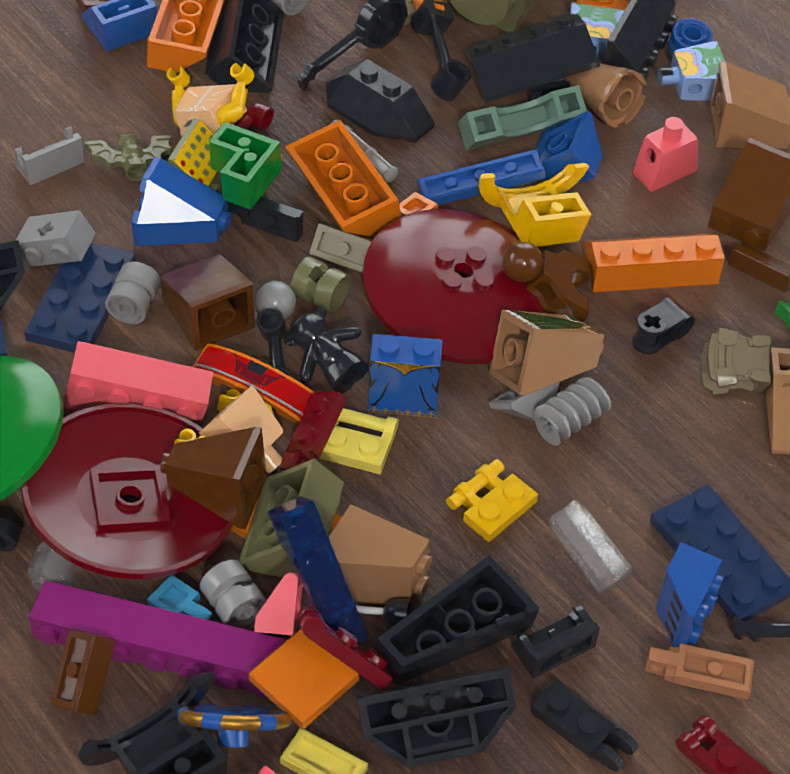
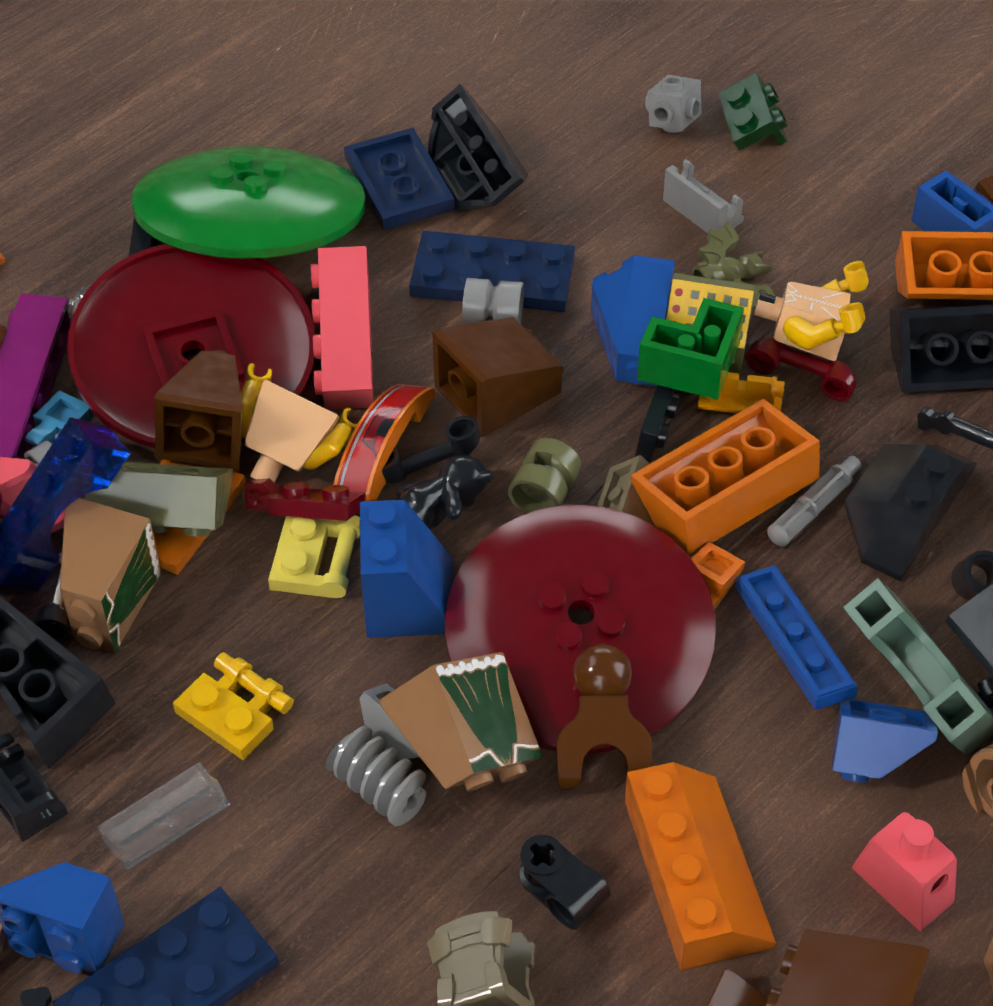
camera: 85 degrees right, 0 degrees up
(55, 238) = (552, 220): light grey brick -> none
(276, 296) = (509, 439): light grey piece -> none
(542, 211) = (744, 701): yellow piece -> none

